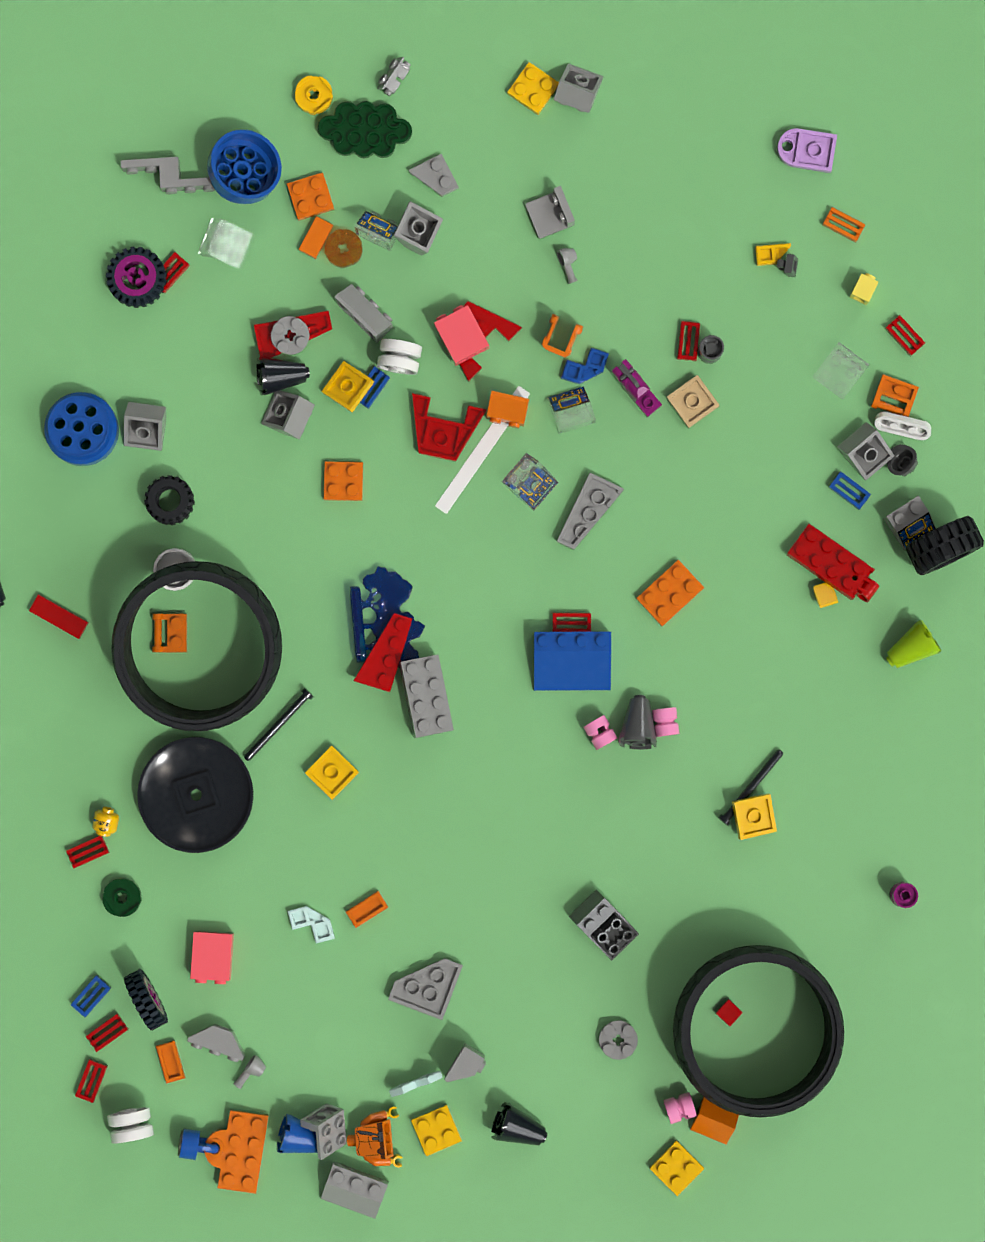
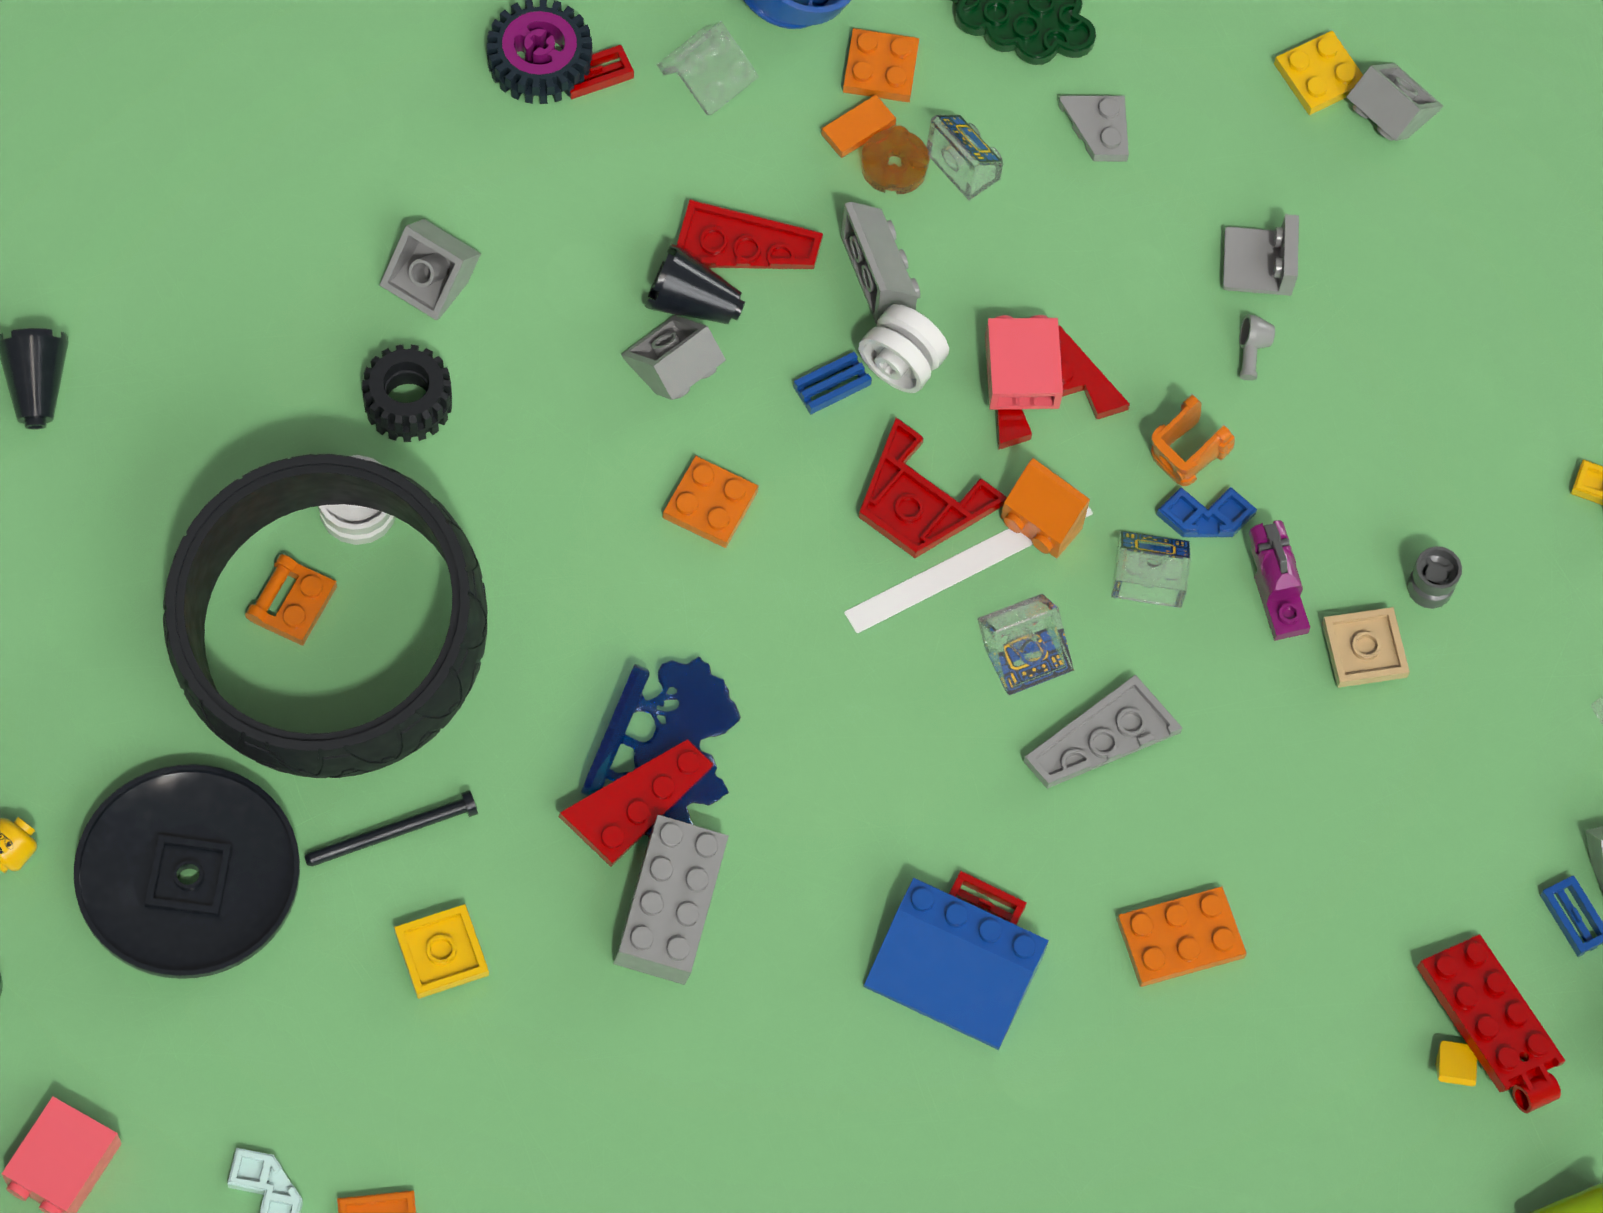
camera: 20 degrees right, 20 degrees down
(58, 616) = (123, 489): red tile -> none
(101, 444) = (345, 257): blue wheel -> none
(284, 344) = (753, 255): light grey plate -> none
(347, 386) = (794, 359): yellow plate -> none
(417, 228) = (1030, 176): light grey slope -> none
(604, 738) = (946, 1101): bright pink wheel -> none
(638, 725) = (1018, 1127): dark grey cone -> none
(665, 721) = (1073, 1137): bright pink wheel -> none
(686, 357) = (1387, 576): red tile -> none

